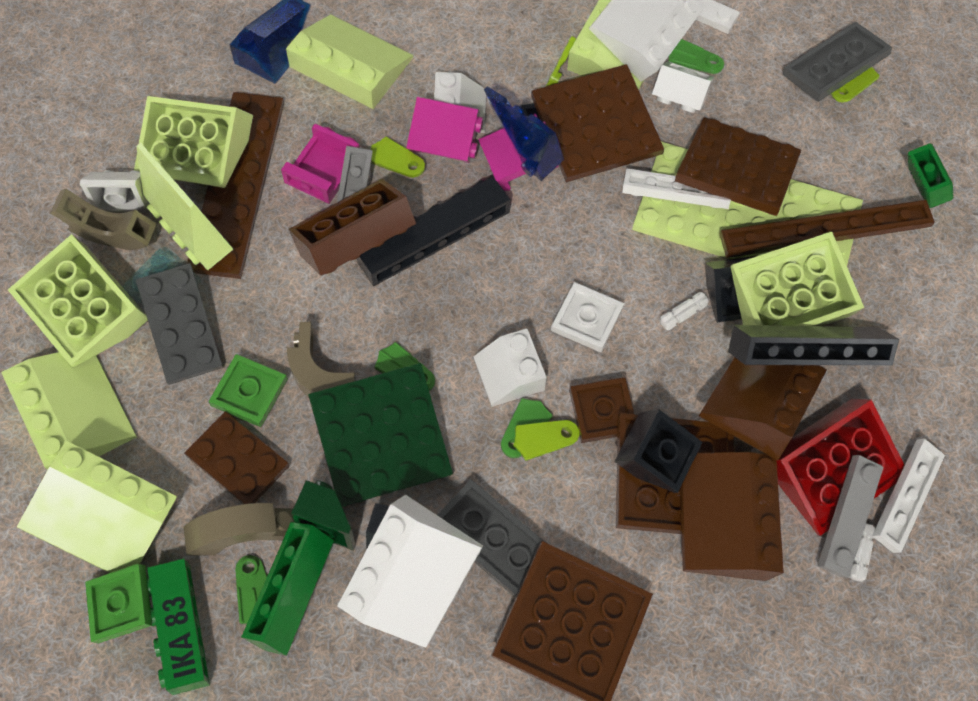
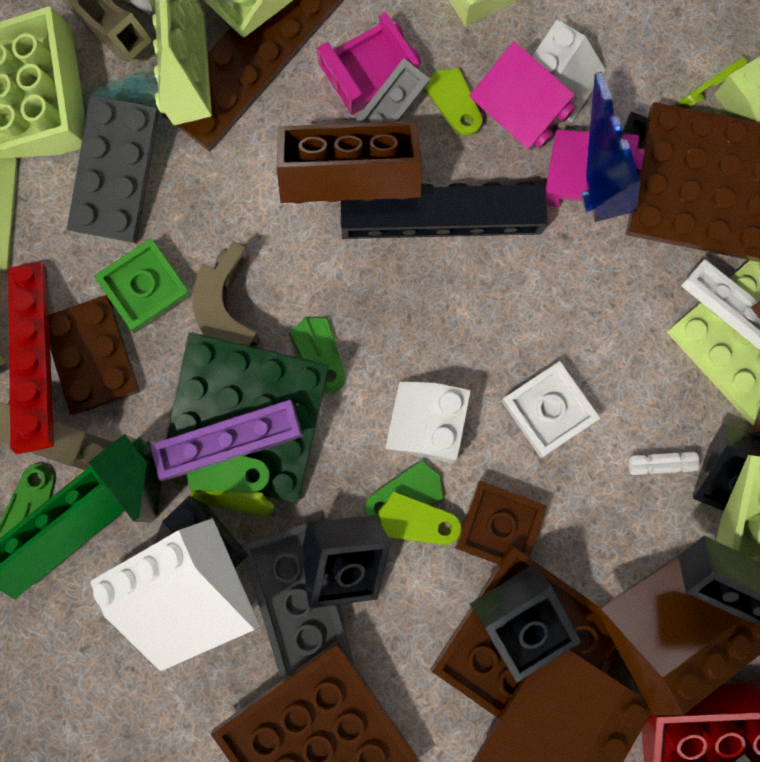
camera: 30 degrees right, 15 degrees up
(199, 475) = (29, 359): none -> red plate
(379, 449) = (226, 440): none -> medium lavender plate
(389, 475) = (230, 476): none -> bright green piece
(419, 489) = (244, 502): none -> lime piece
(511, 487) = (344, 560): none -> black slope

